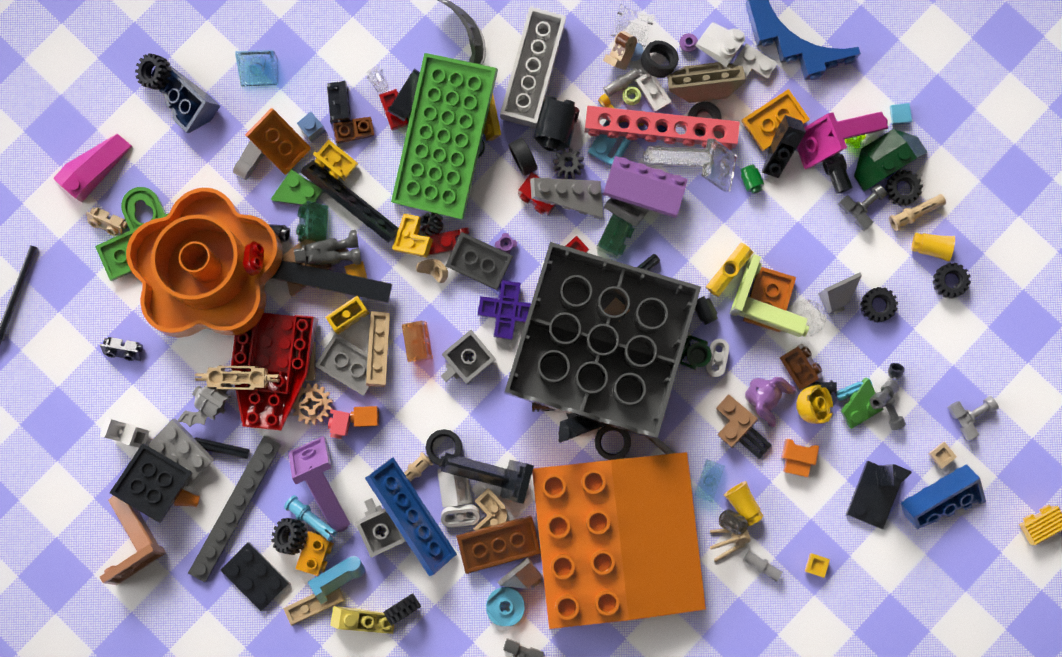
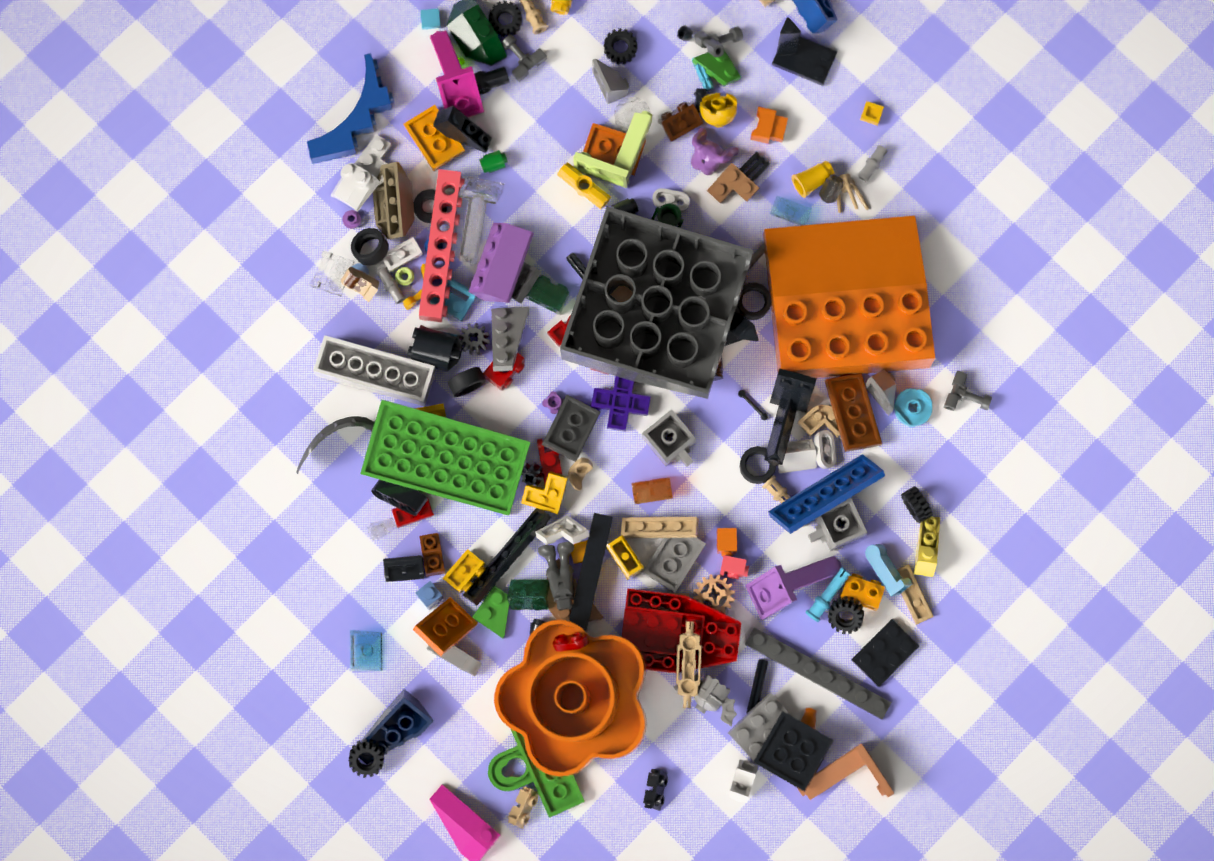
camera: 90 degrees left, 5 degrees down
(377, 254) = (564, 527): none -> white plate
(518, 431) = (742, 394): none -> black hinge

